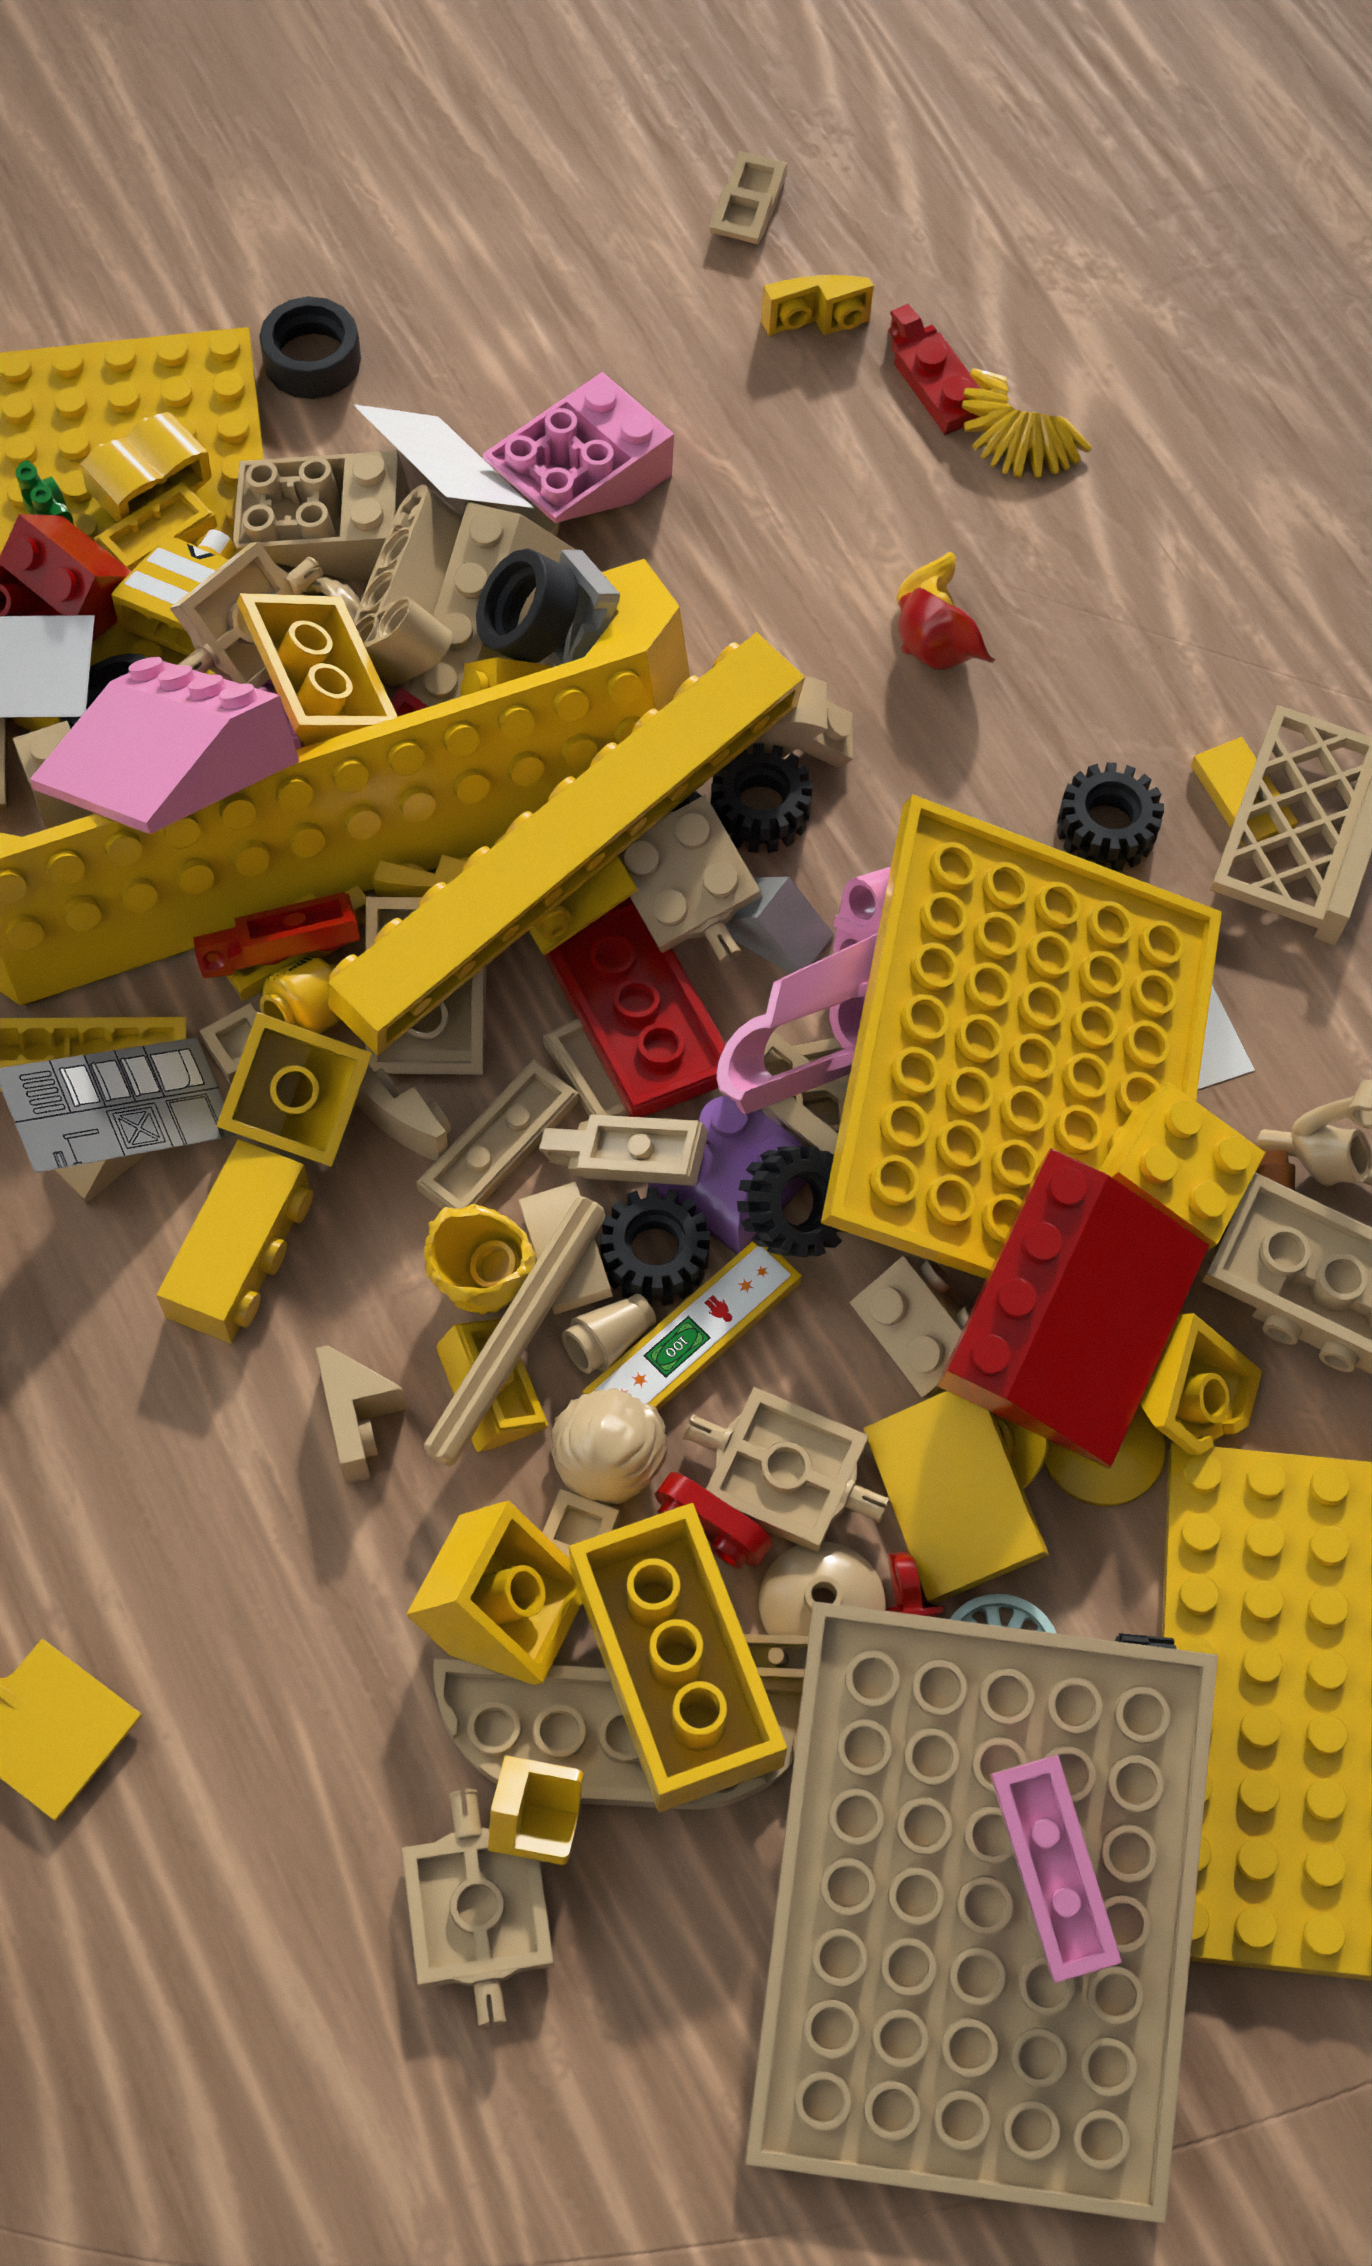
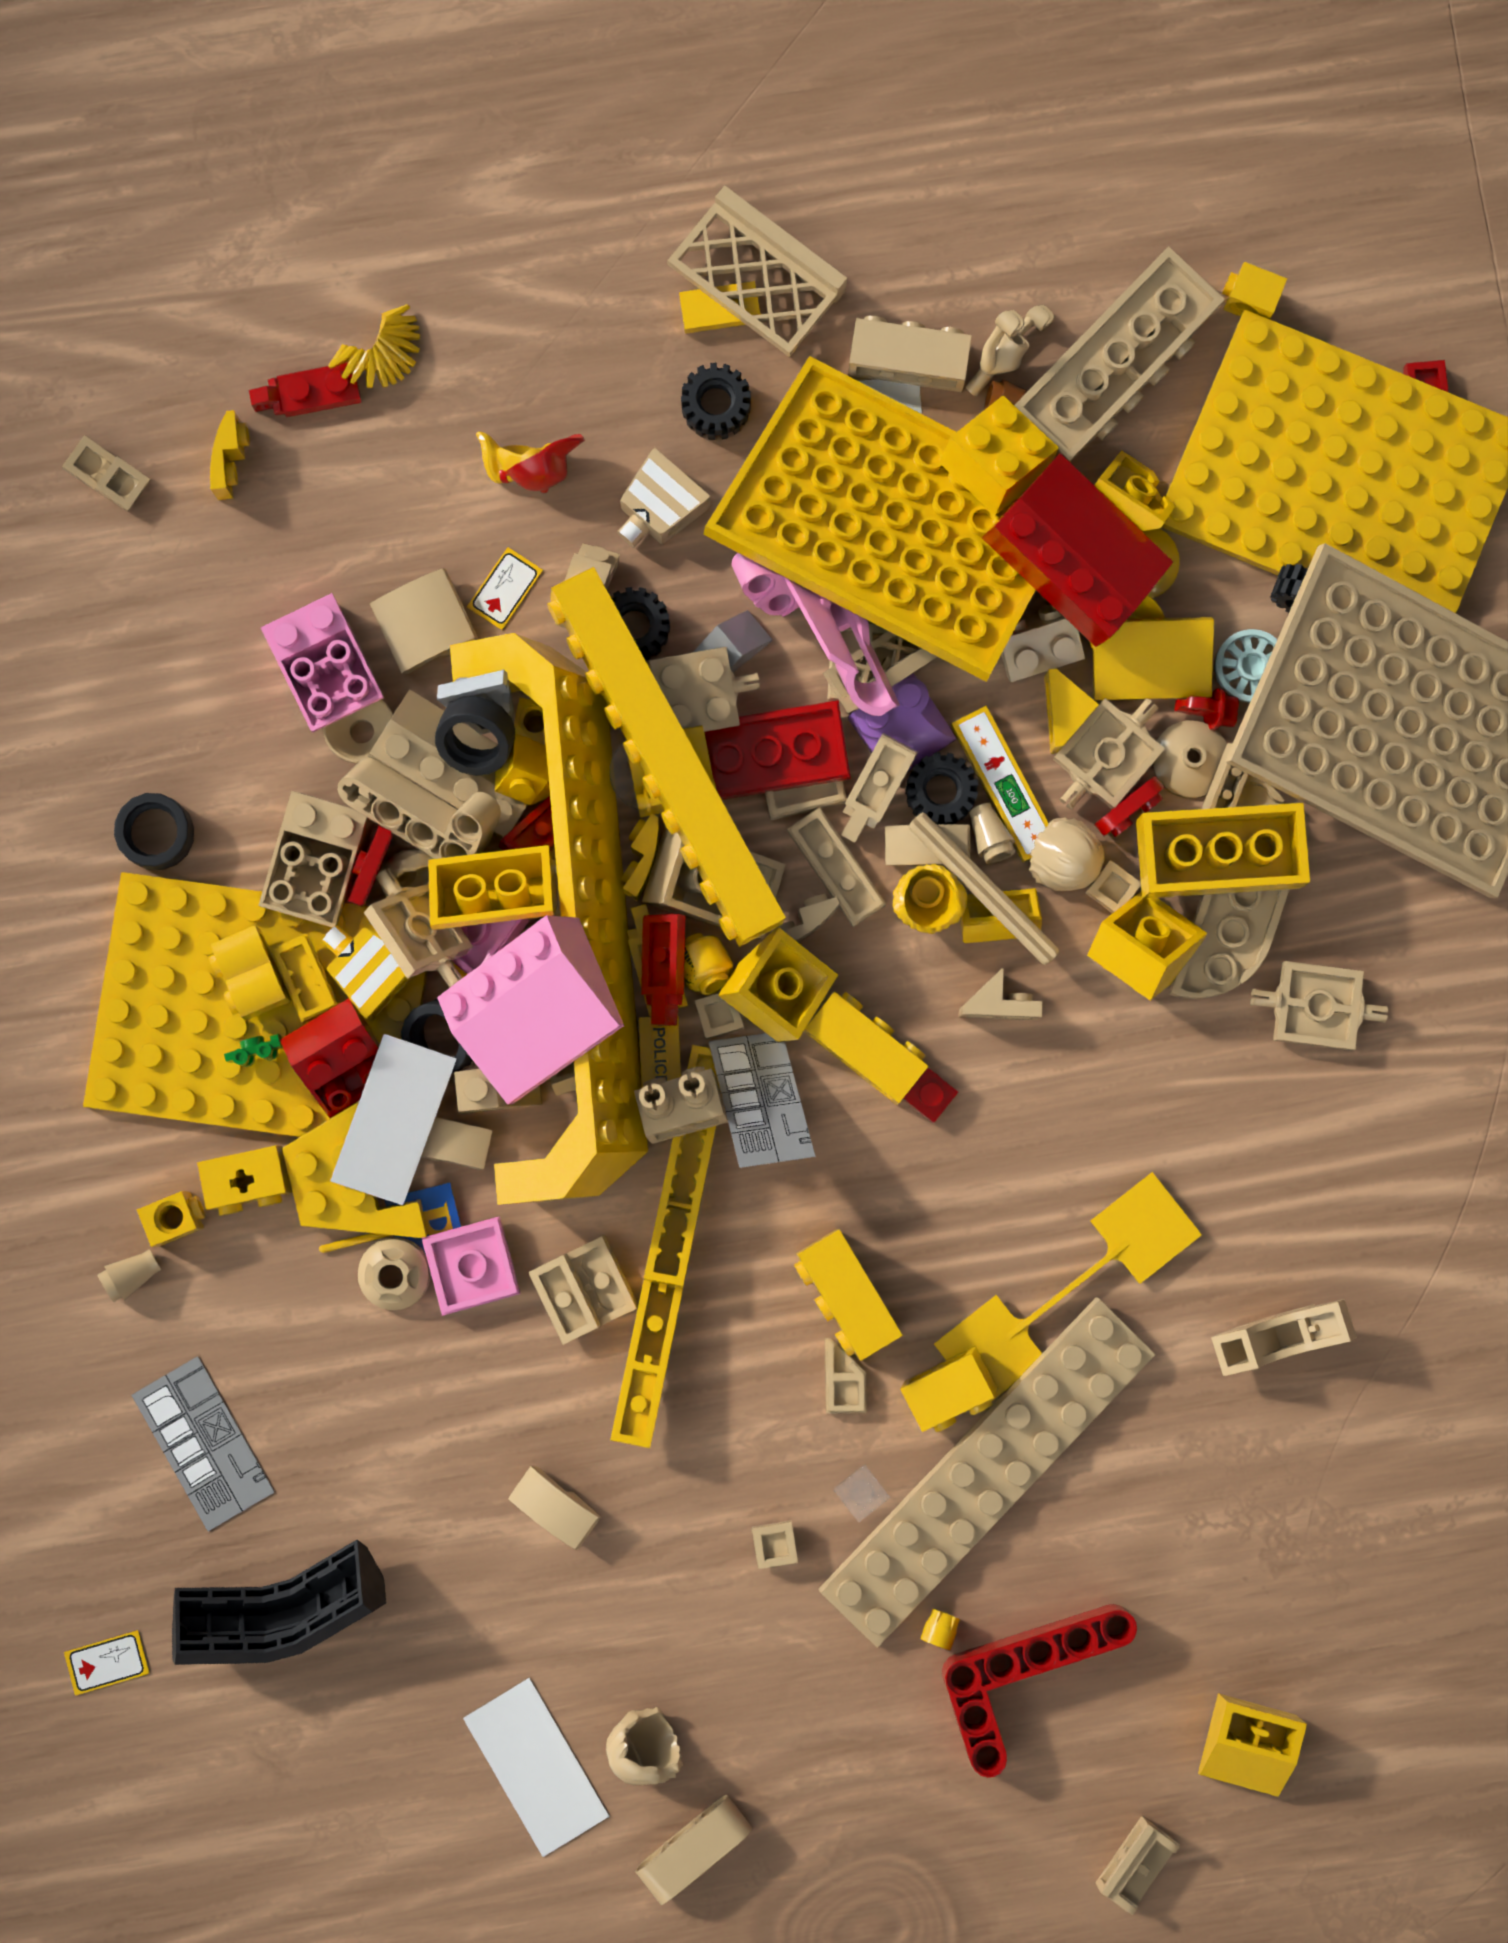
camera: 75 degrees left, 20 degrees up
(82, 993) = (680, 1104): none -> tan brick
(157, 985) = (659, 1051): none -> yellow tile
(188, 1356) = (930, 1095): none -> red plate
(340, 553) = (369, 865): none -> red plate
(443, 457) = (301, 761): white sticker -> none
(535, 1810) = (1283, 958): yellow panel -> none
(688, 554) = (423, 620): none -> tan slope
(733, 628) = (504, 588): none -> white sticker
(765, 1201) = (938, 704): black tyre -> none
(831, 1382) = (1066, 708): none -> yellow slope
(943, 768) = (660, 501): none -> tan torso
(1055, 1868) = (1410, 676): bright pink plate -> none
(1278, 1034) = (909, 354): none -> tan brick

